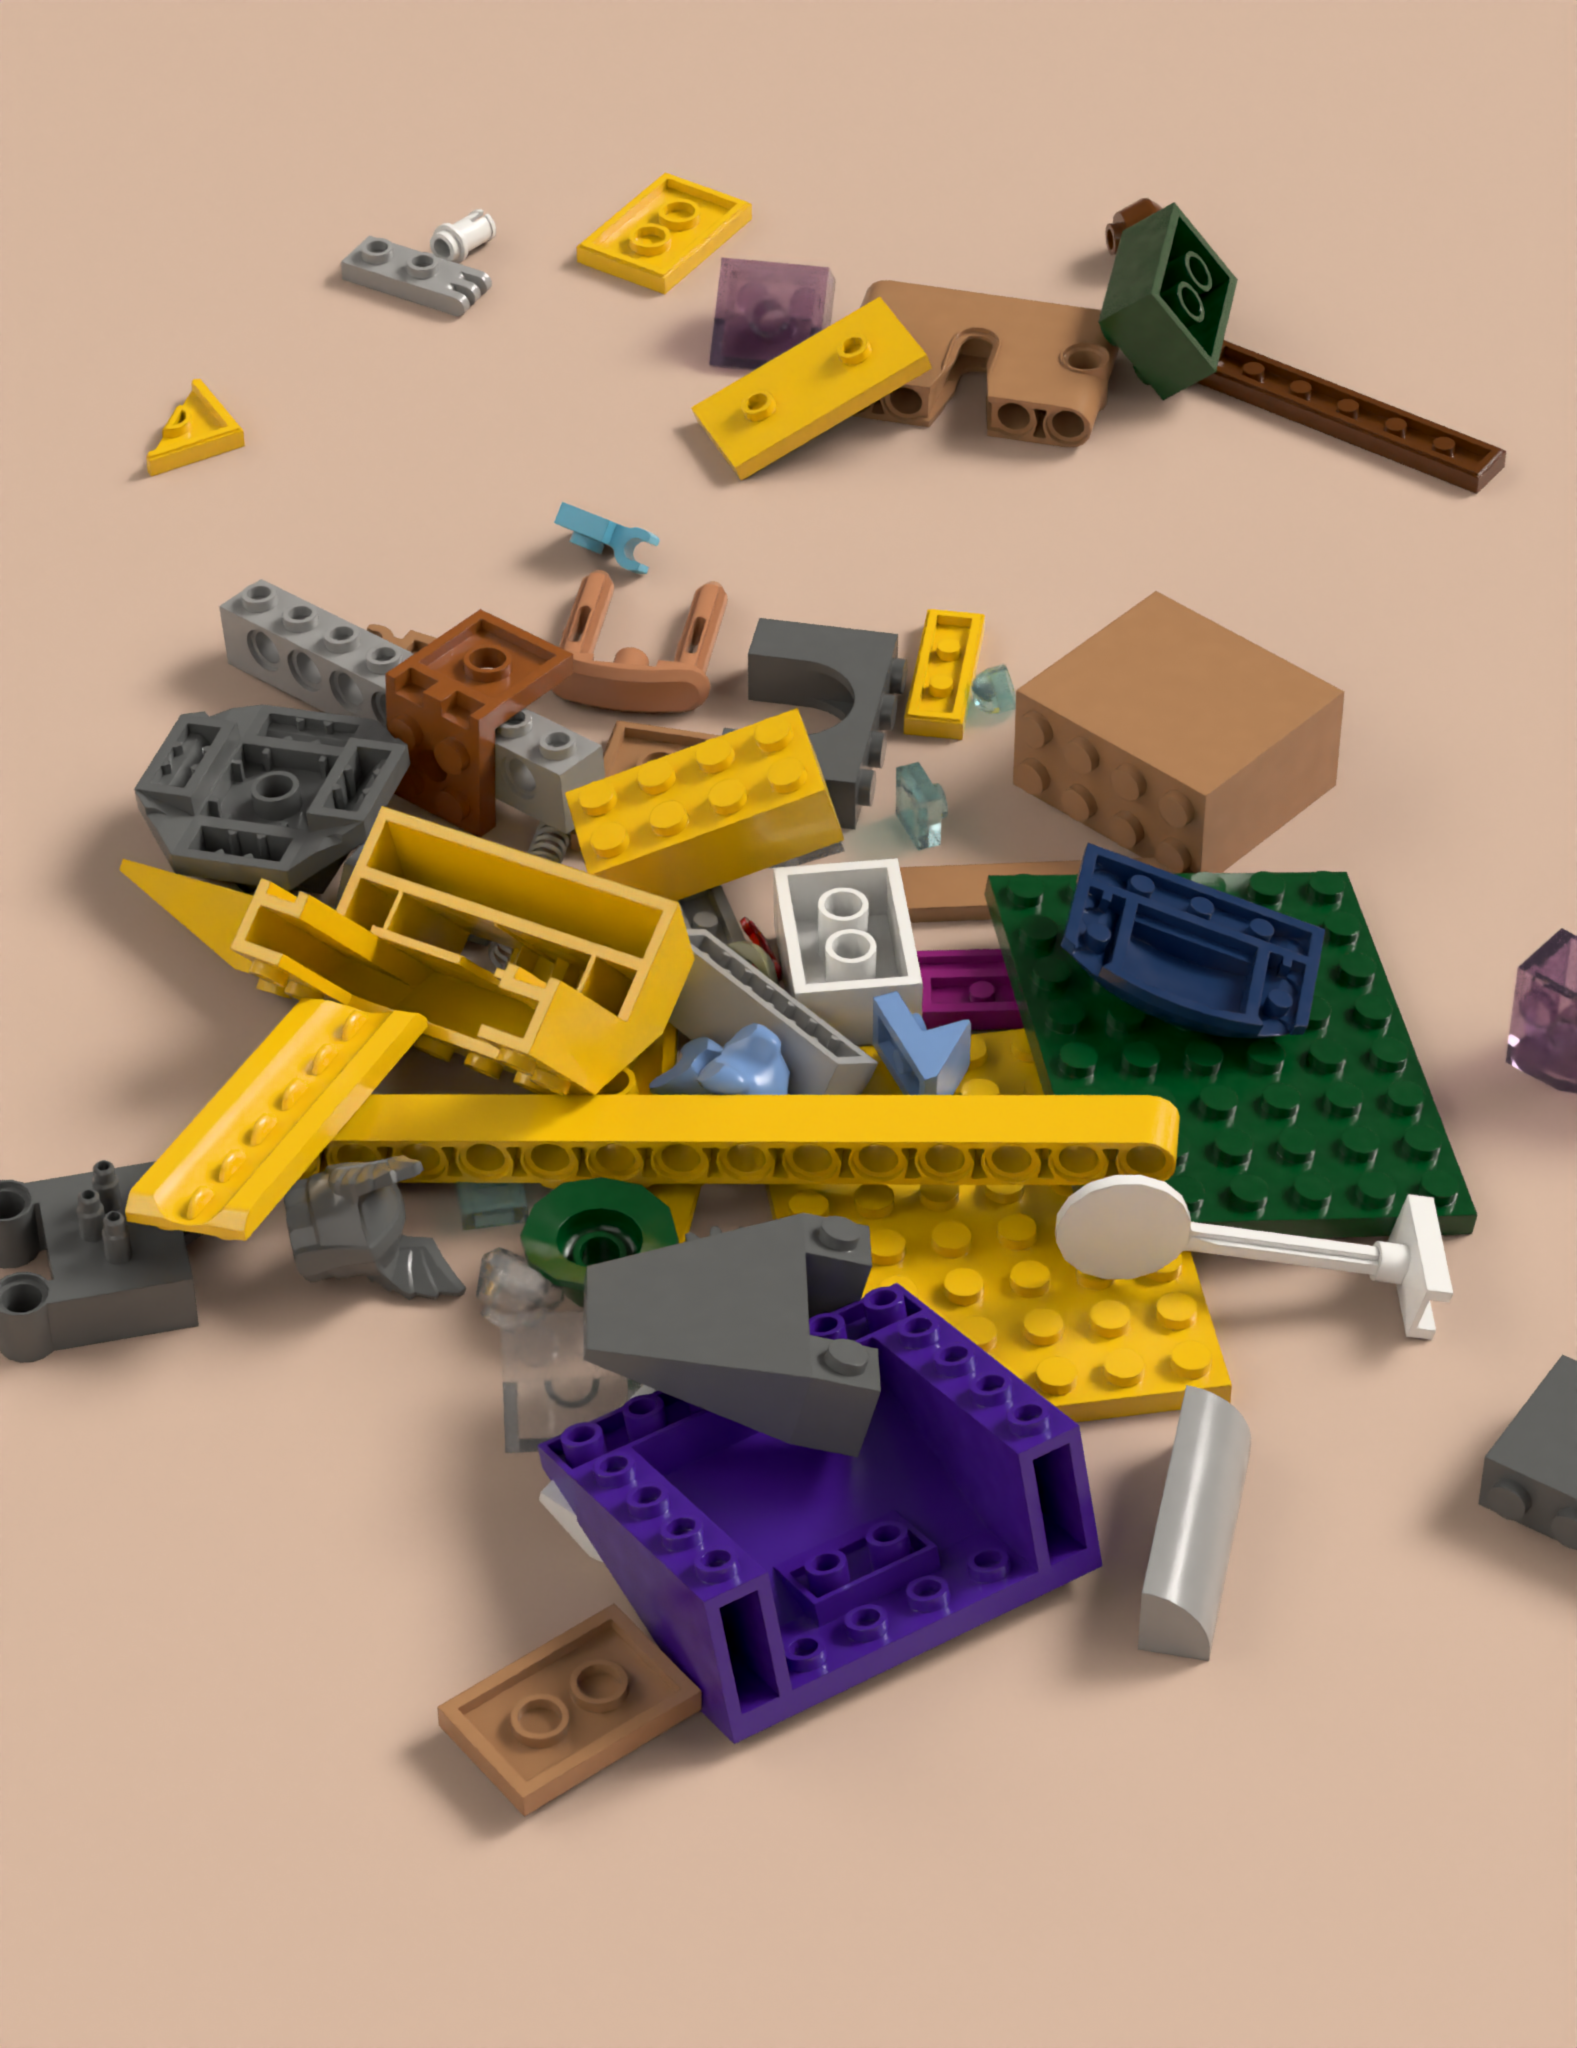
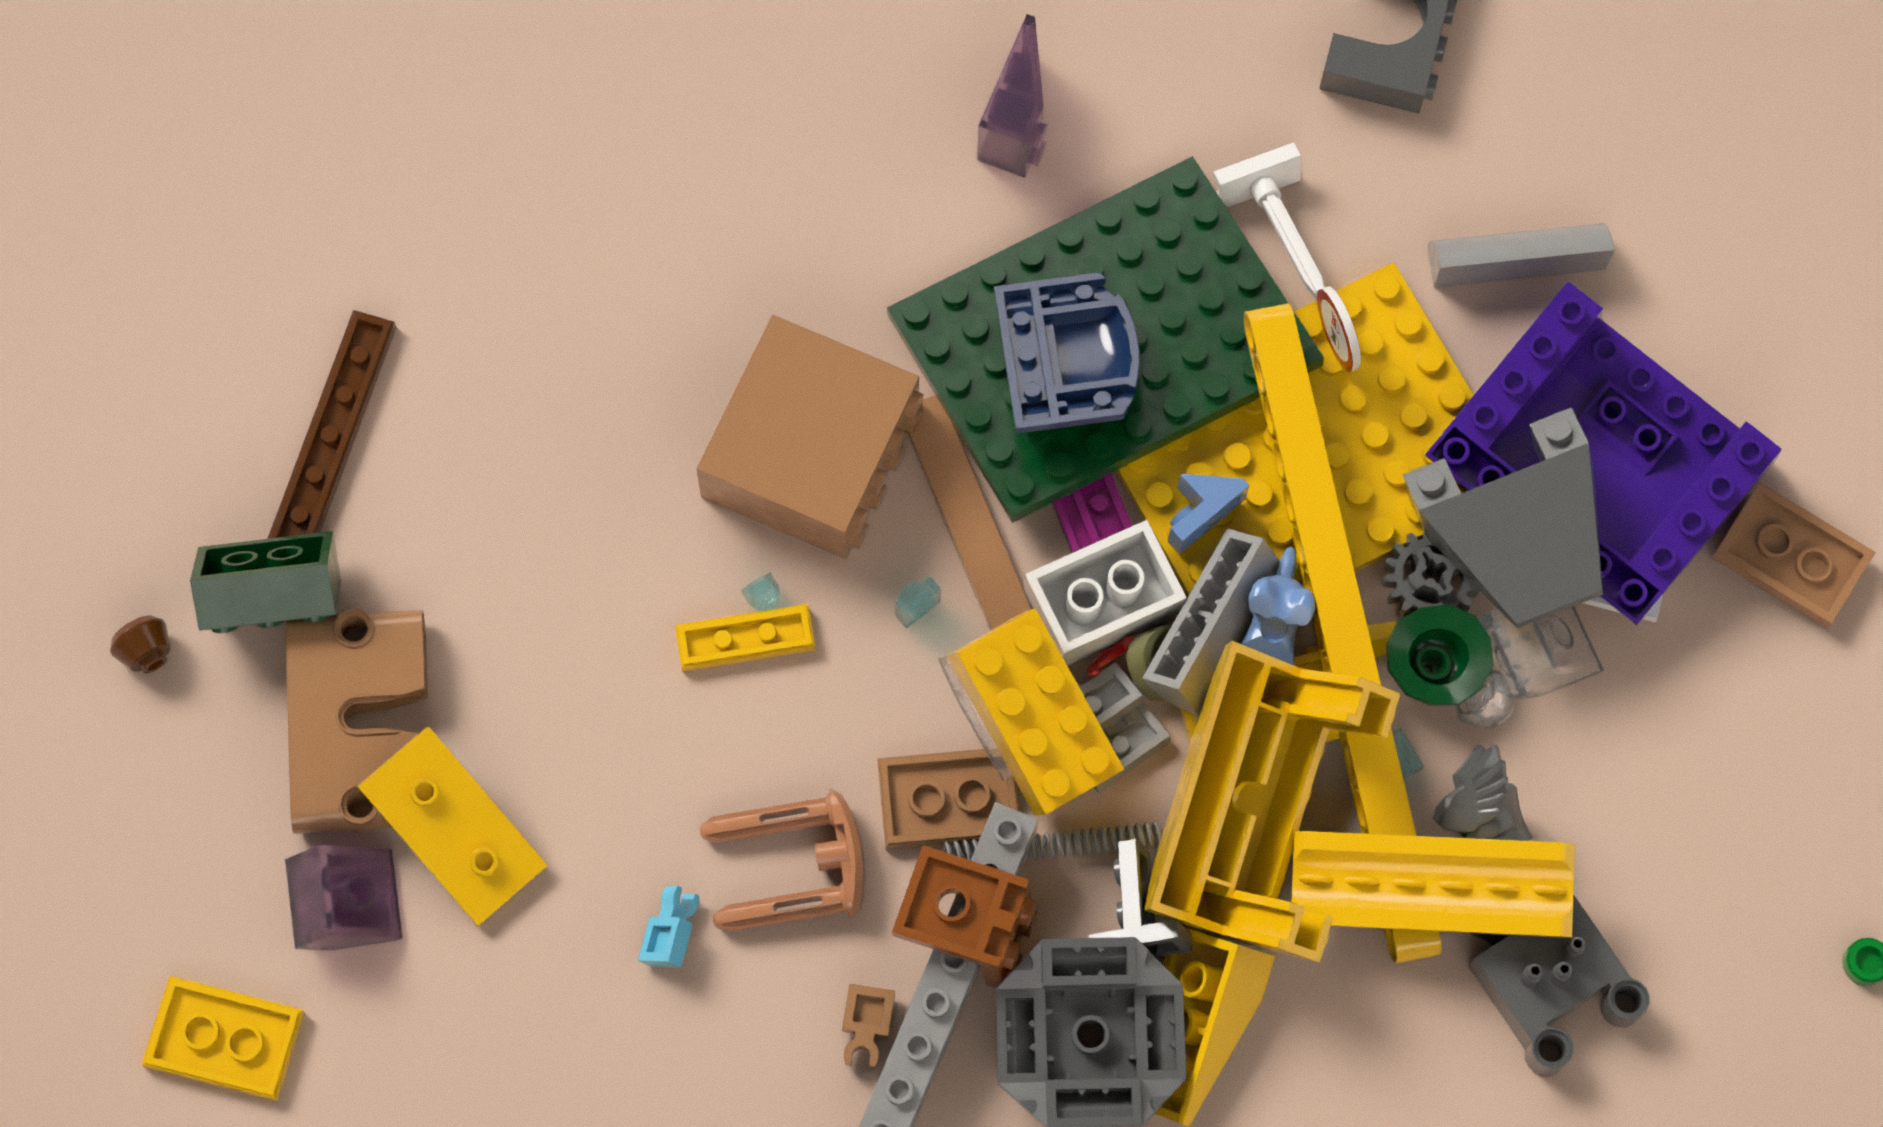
camera: 110 degrees left, 30 degrees up
(842, 674) = (901, 670): dark grey arch -> none

